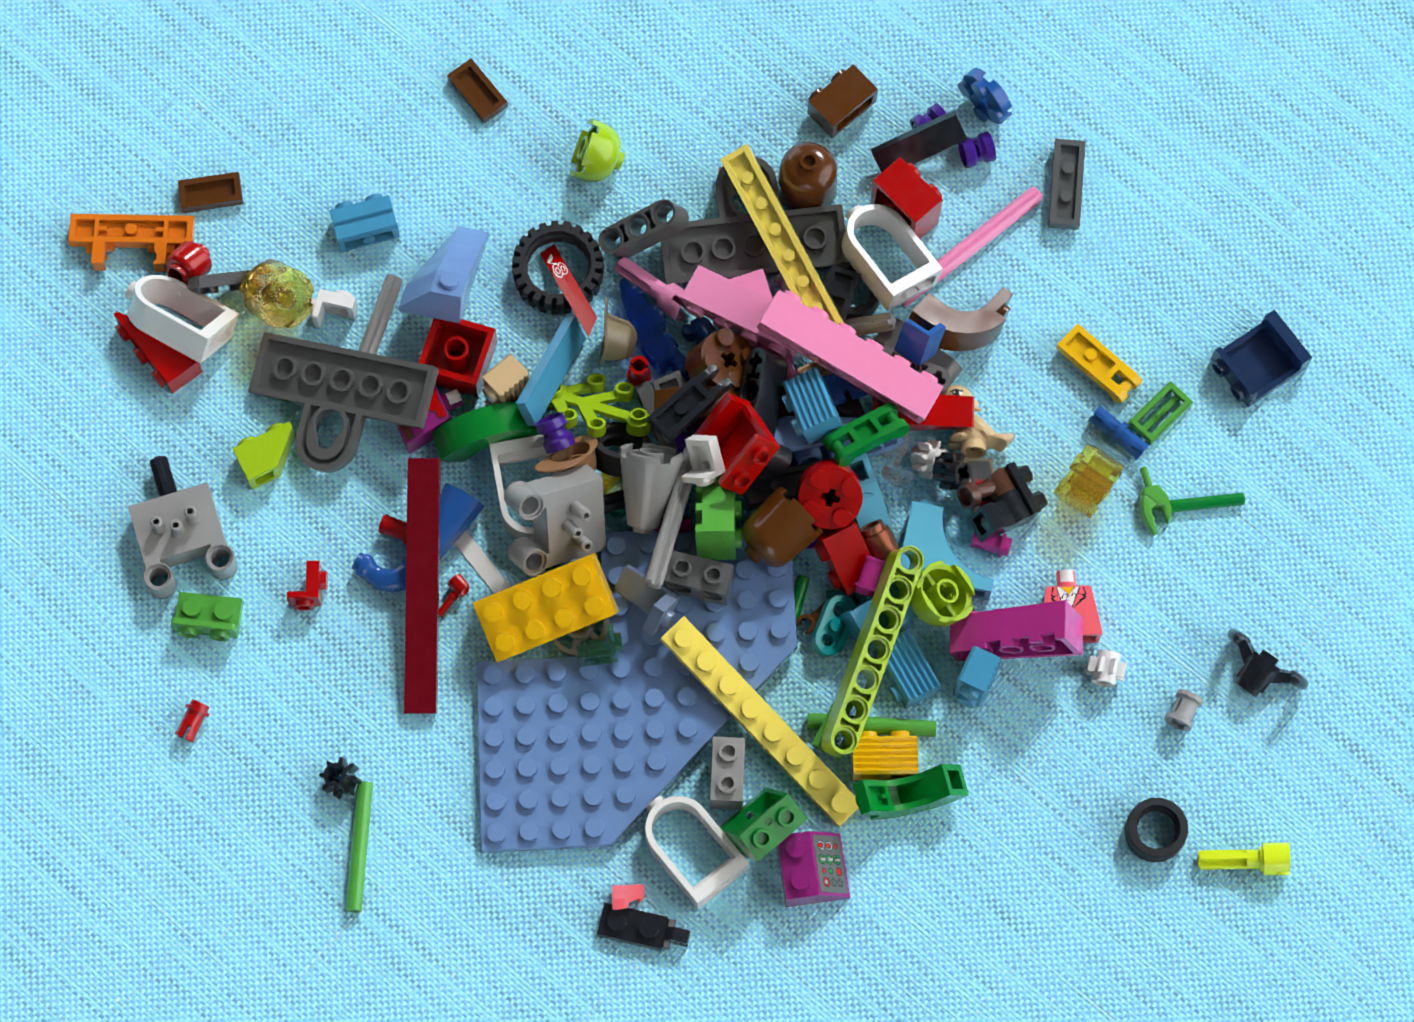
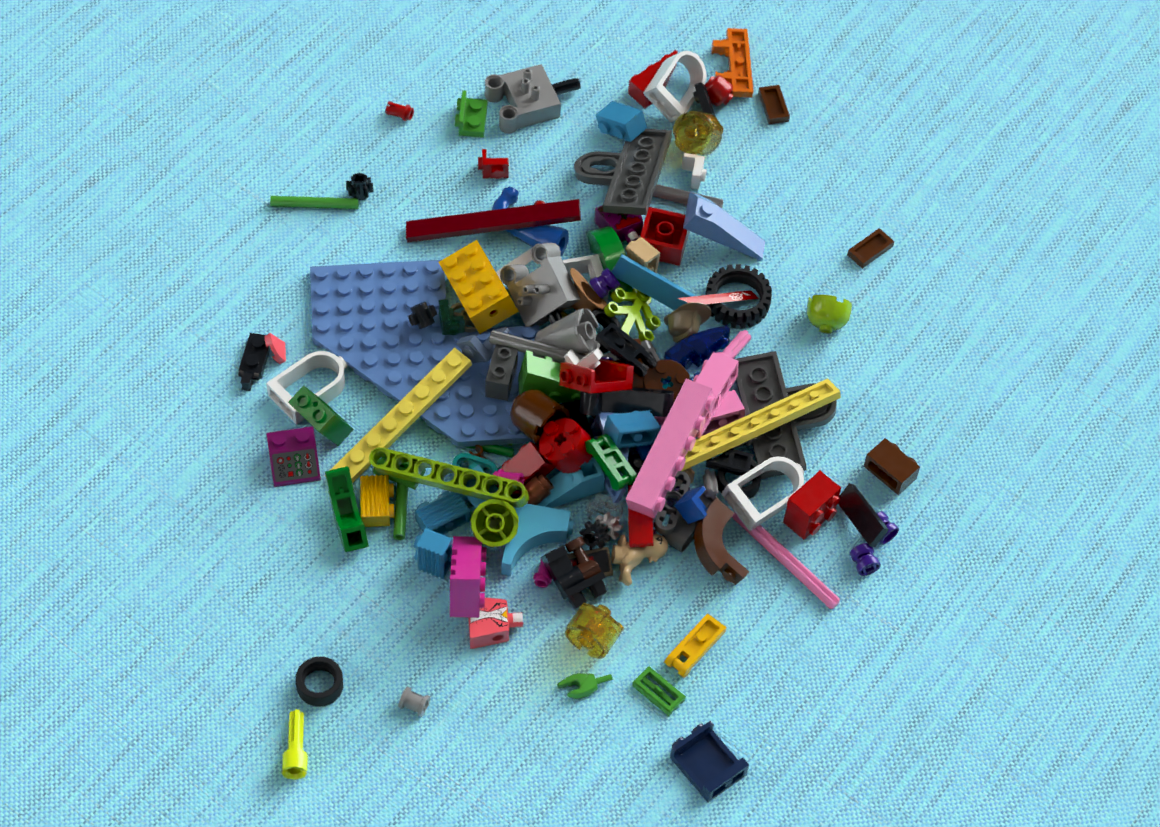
camera: 85 degrees right, 15 degrees down
(244, 400) = (621, 121): none -> dark azure brick
(265, 455) = (583, 136): lime slope -> none
(364, 222) = (759, 184): dark azure brick -> none
(459, 587) = (496, 250): red hand -> none
(595, 684) = (422, 315): none -> black gear
(630, 229) = (769, 338): dark grey beam -> none
(638, 370) = (662, 344): red pin -> none
(727, 773) = (362, 403): light grey brick -> none
(807, 176) = (825, 443): reddish brown cylinder -> none
(987, 97) = (907, 559): blue plate -> none
(1066, 184) = (845, 623): dark grey plate -> none
(1106, 668) = (445, 646): white gear -> none
(1118, 432) = (639, 658): blue pin -> none
(1207, 502) = (586, 724): green piece -> none
(1261, 668) = (449, 755): black piece -> none

